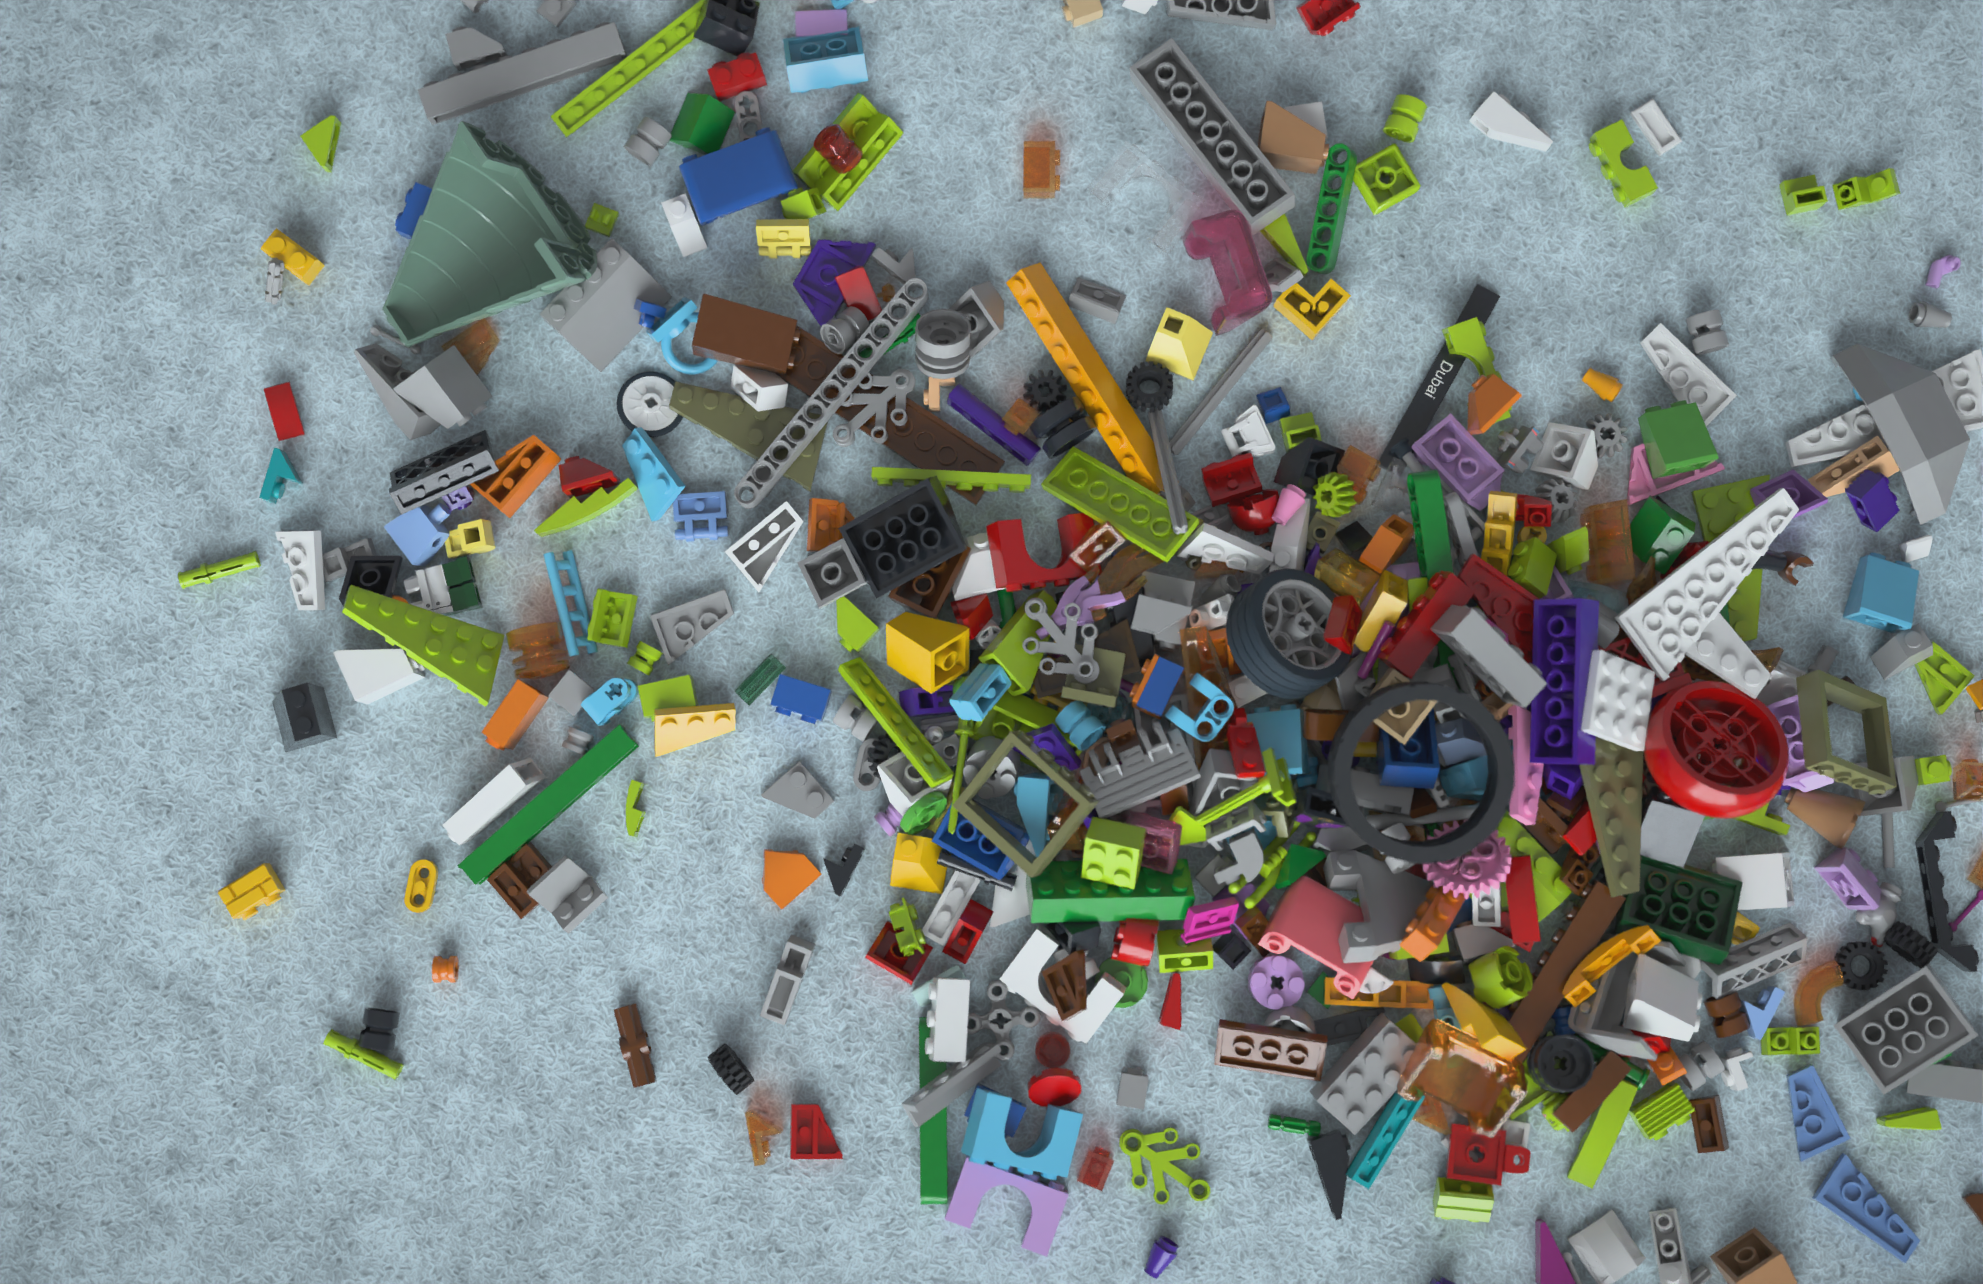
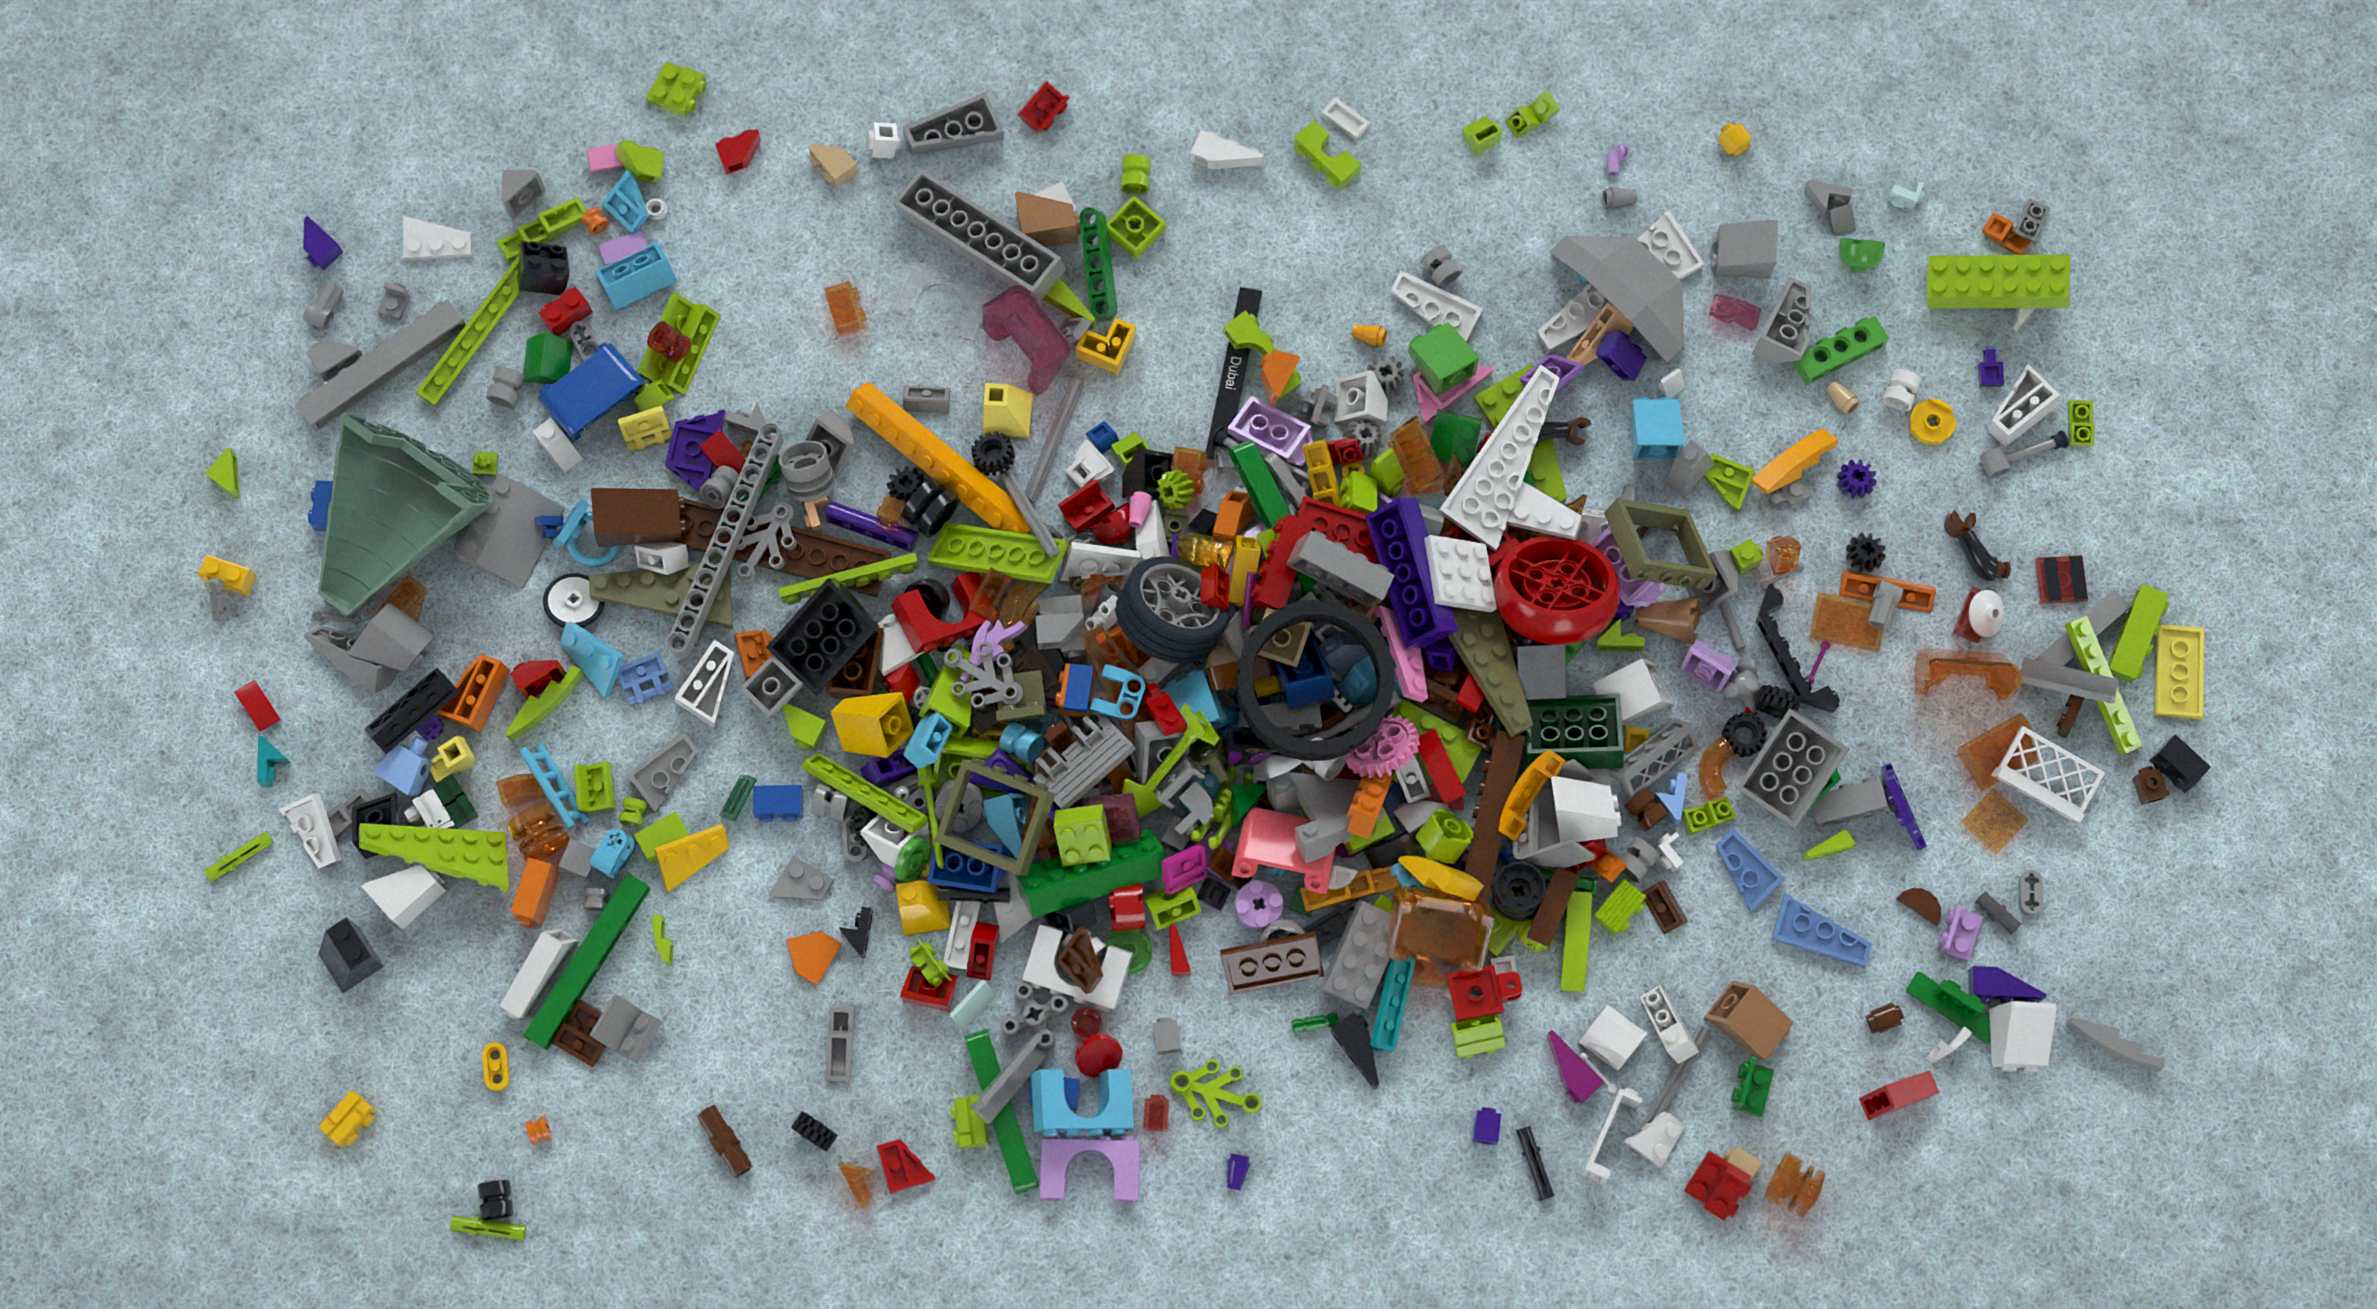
camera: 20 degrees left, 10 degrees down
(531, 595) = (519, 790): none -> clear orange slope
(894, 1121) = (971, 1129): none -> lime brick
(948, 1019) = (988, 1025): white brick -> none
(1036, 527) = (934, 595): none -> black cylinder

